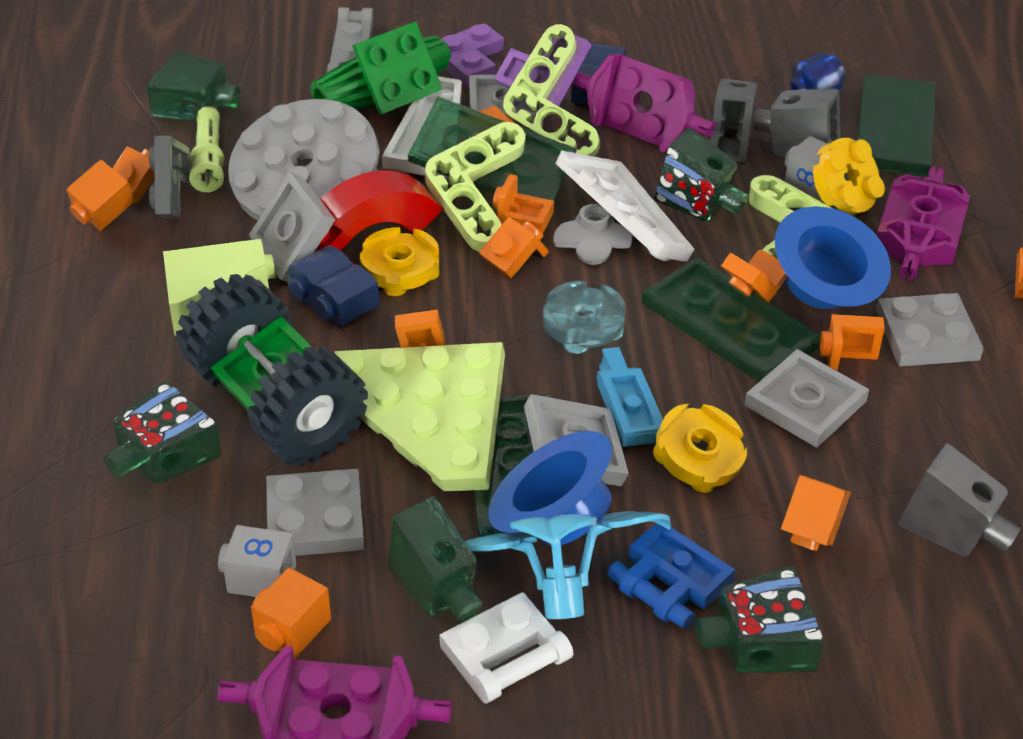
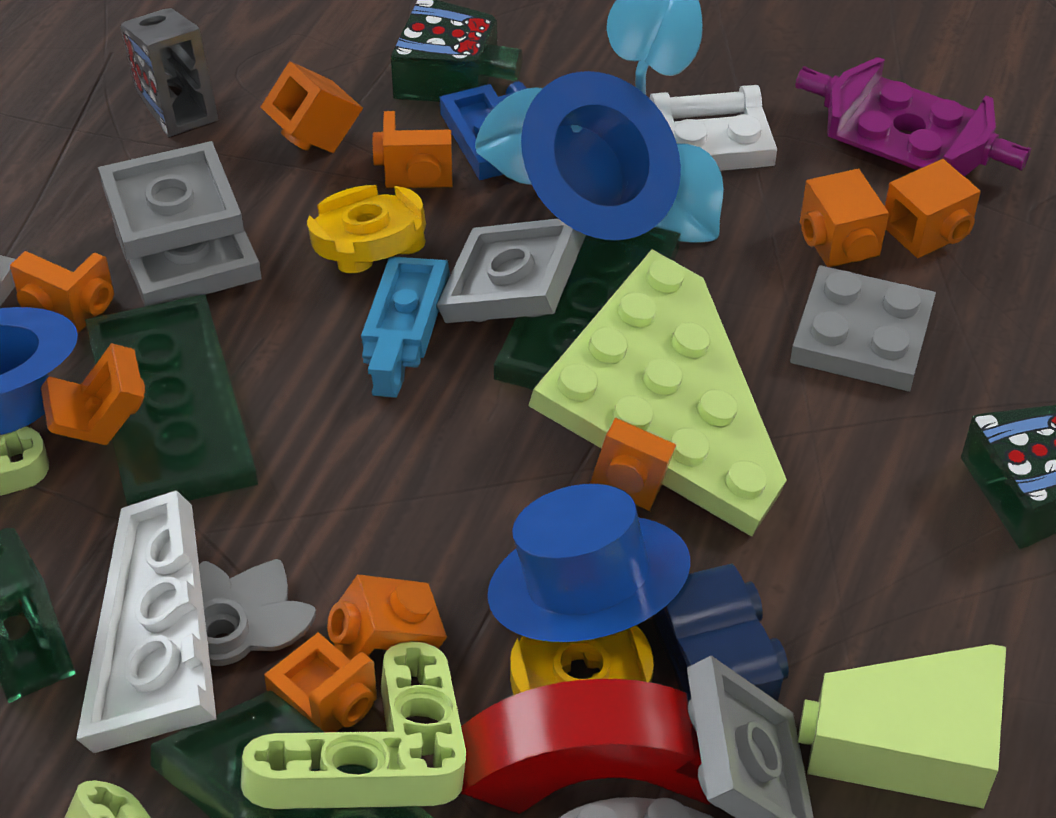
camera: 155 degrees left, 5 degrees up
(255, 559) = (956, 267): light grey brick -> none
(292, 393) = (900, 515): black plate -> none
(359, 577) = (843, 218): none -> orange brick
(418, 277) = (586, 566): none -> blue hose
(433, 560) = (767, 172): clear green torso -> none
(603, 321) = (373, 491): clear light blue plate -> none
(718, 511) = (413, 156): none -> orange bracket
(833, 391) = (170, 200): none -> light grey plate

